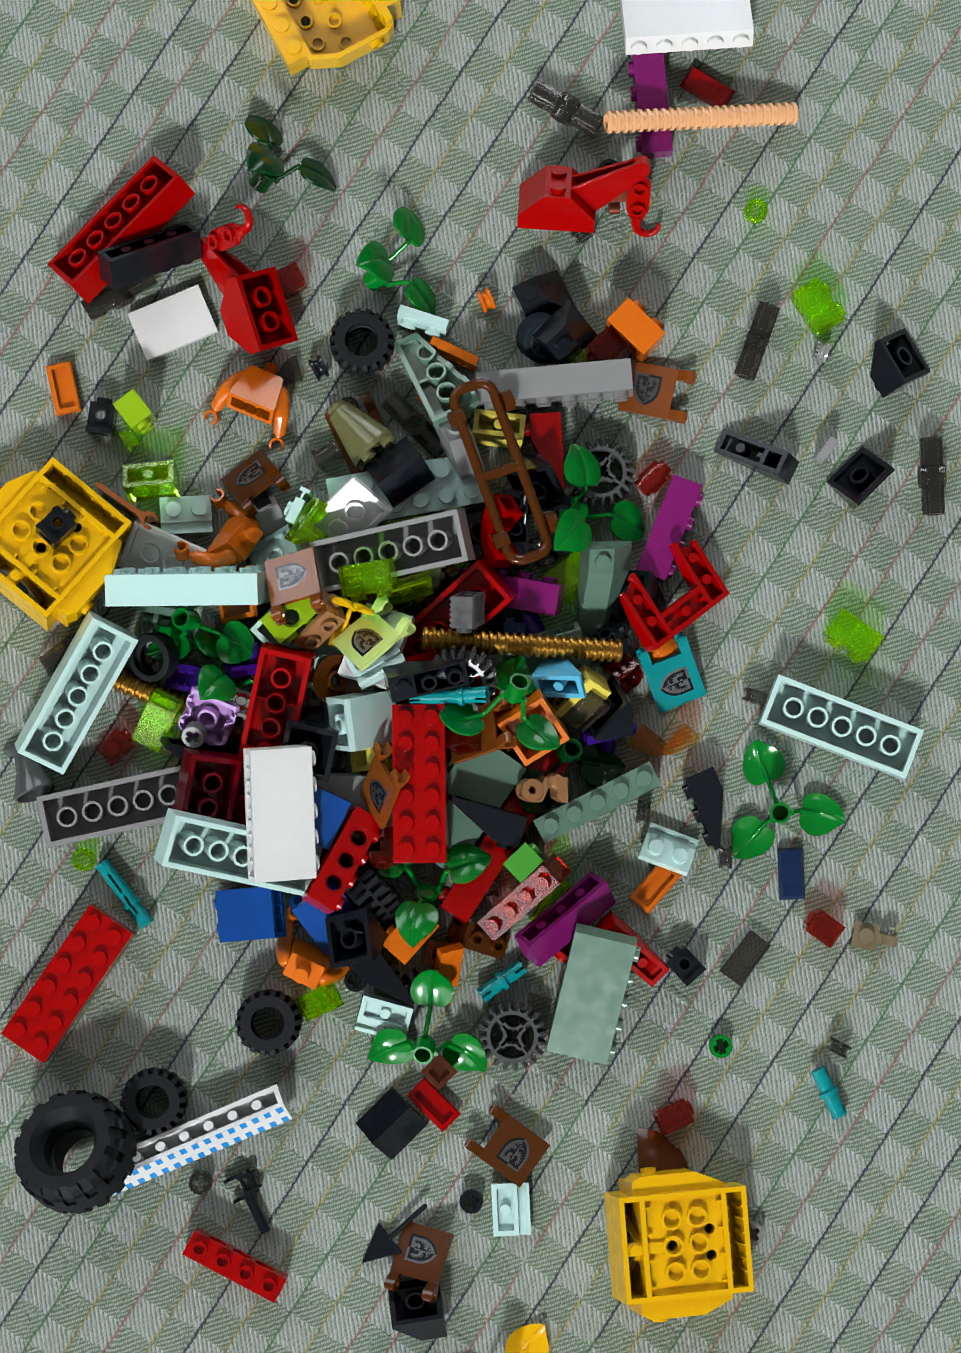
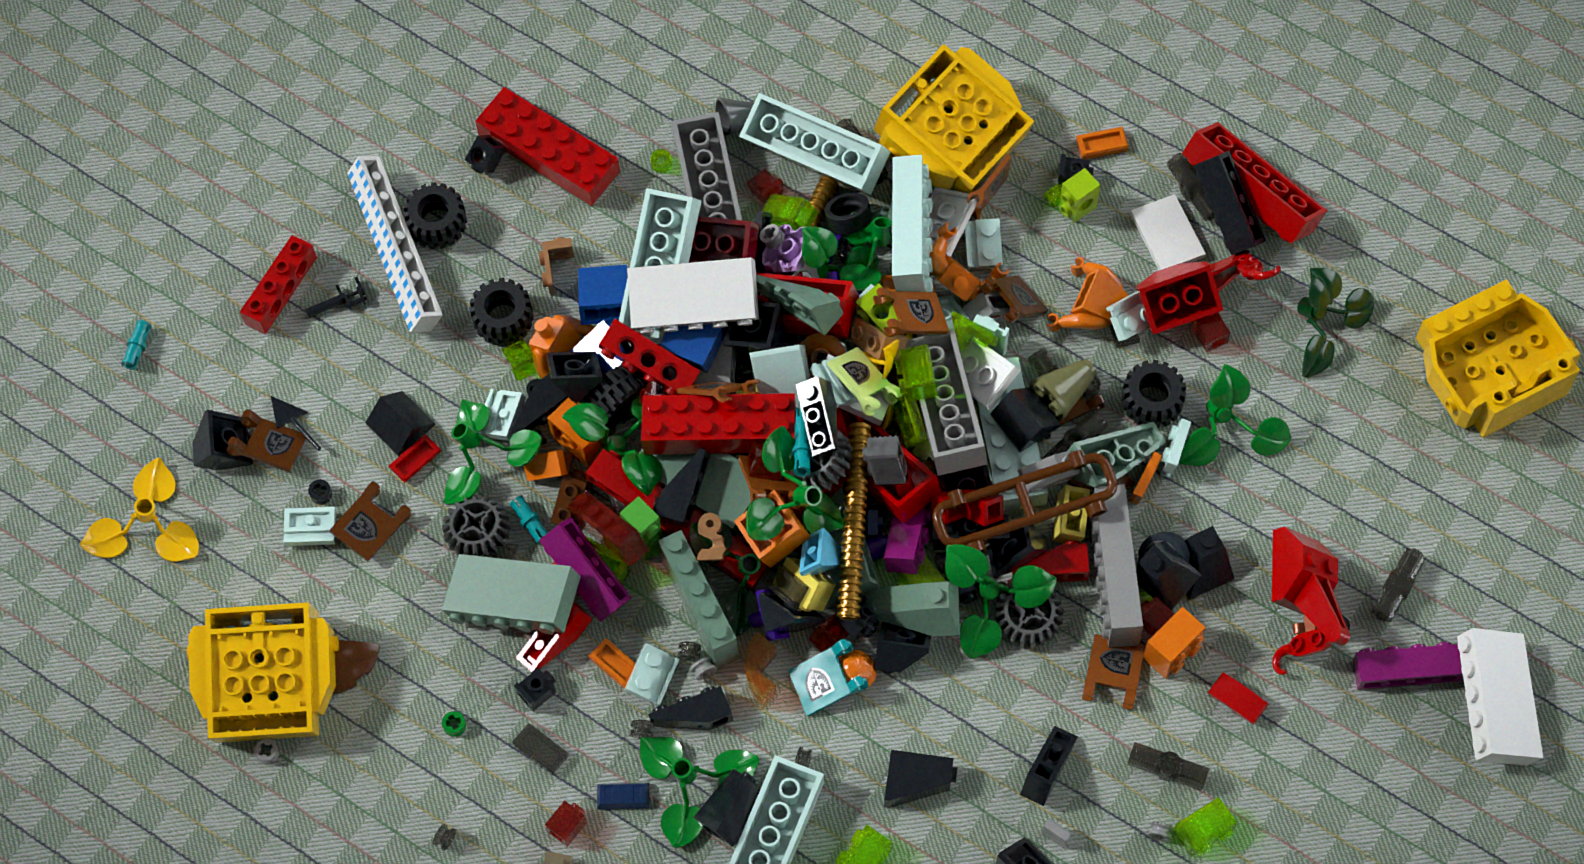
camera: 90 degrees right, 20 degrees down
(51, 1134) = (391, 140): black tyre -> none
(56, 535) = (966, 125): black brick -> none
(73, 1044) = (494, 152): none -> black brick
(131, 903) = (619, 199): teal pin -> none
(151, 480) = (1015, 210): clear neon green brick -> none
(191, 965) = (553, 250): none -> medium nougat bracket
(206, 1177) = (352, 254): clear smoke bush -> none
(276, 365) = (1128, 316): none -> light aqua plate
(291, 690) = (803, 302): none -> sand green wedge
(318, 368) = (1127, 358): black bush -> none
(439, 1071) = (445, 460): copper tile -> none
(486, 300) = (1200, 508): orange bush -> none
(582, 236) = (1267, 601): clear smoke bush -> none
(653, 478) = (1025, 664): clear red brick -> none
(661, 797) = (703, 668): none -> light grey bush
(669, 527) = (973, 678): magenta brick -> none
(673, 1115) = (387, 675): clear red brick -> none
(686, 271) = (1238, 698): none -> red slope
(701, 117) = (1396, 708): light nougat piece -> none
(705, 591) = (908, 709): red wedge -> none
(706, 87) = (1430, 725): red tile -> none
(748, 208) = (1307, 761): clear neon green bush -> none
(771, 585) = (917, 777): none -> black slope
(811, 767) = (729, 807): none -> black slope
(829, 1092) = (400, 827): teal pin -> none

